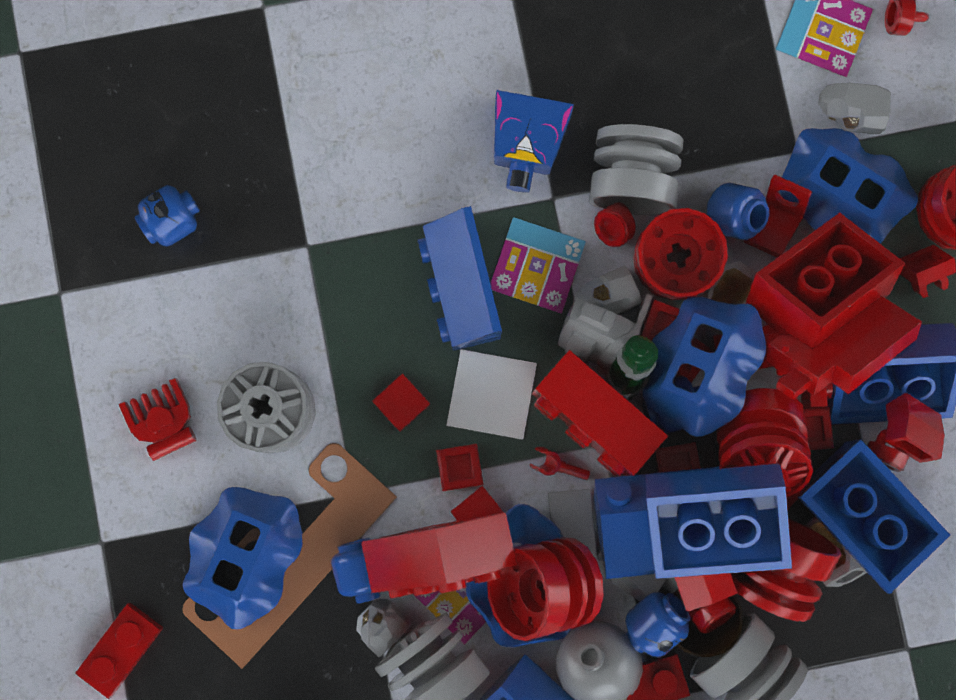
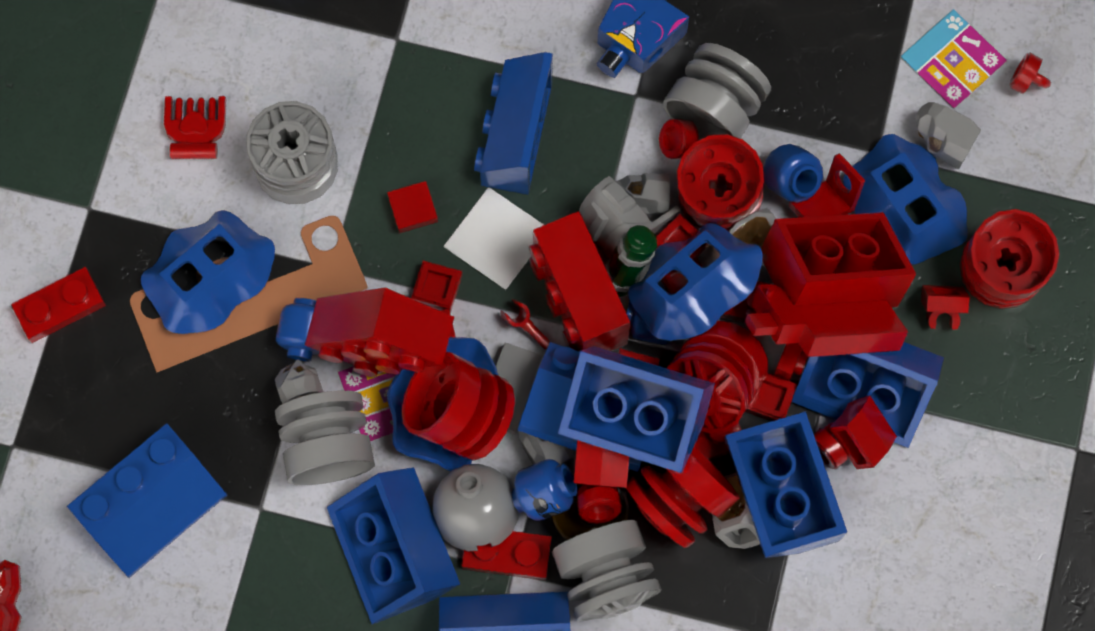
camera: 25 degrees right, 10 degrees down
(537, 265) = (593, 144): sticker -> none

